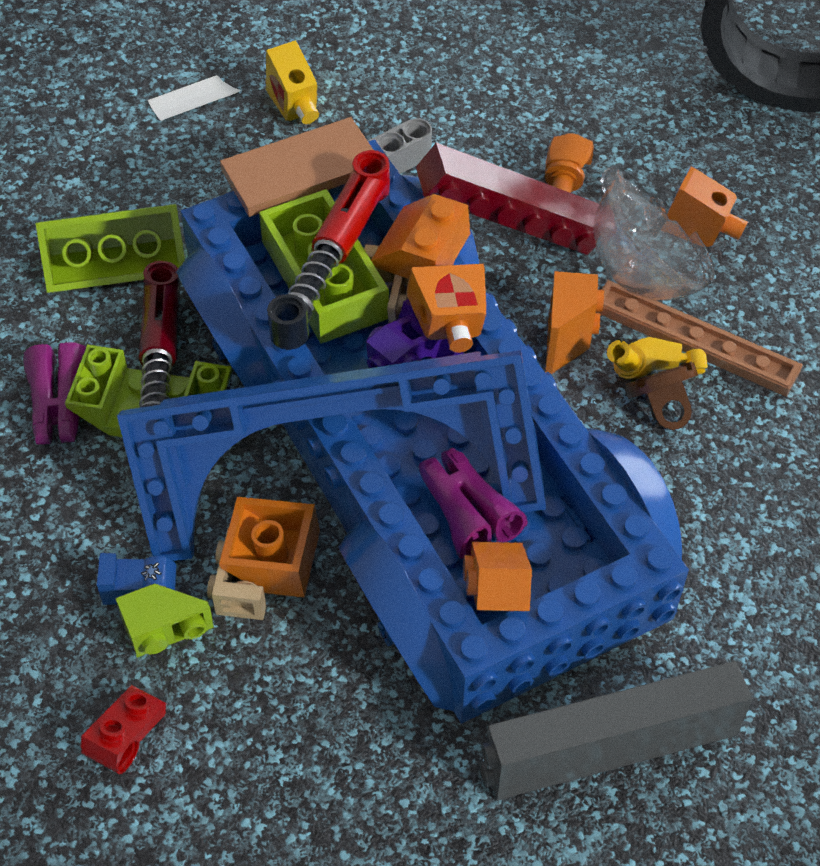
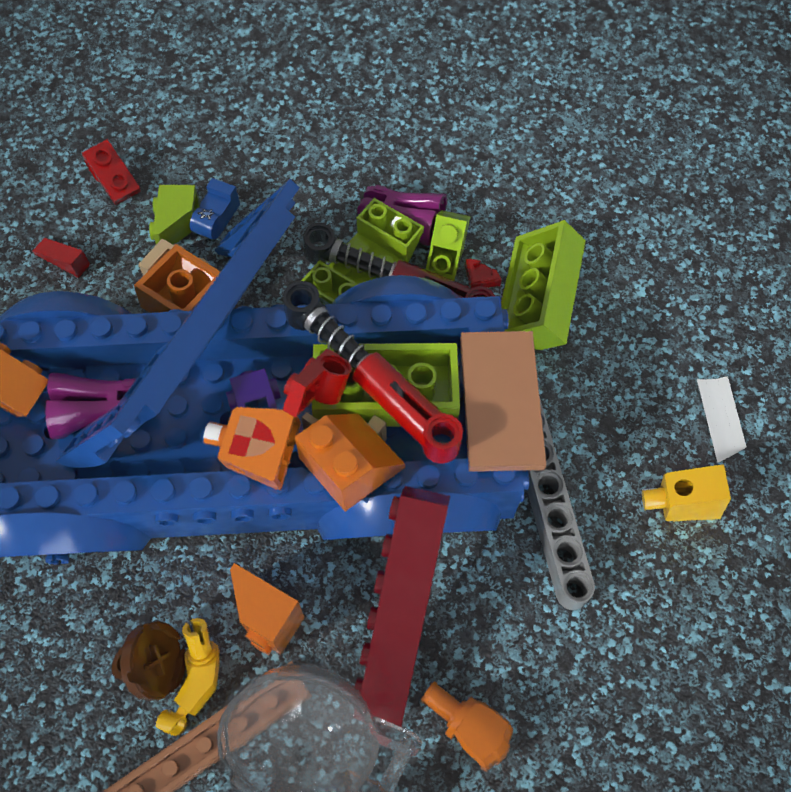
camera: 115 degrees right, 10 degrees up
(86, 326) = (447, 243): none -> lime slope
(113, 306) = (481, 274): none -> red tile
(273, 724) = (63, 256): none -> red piece
(365, 268) = (320, 380): none -> red plate

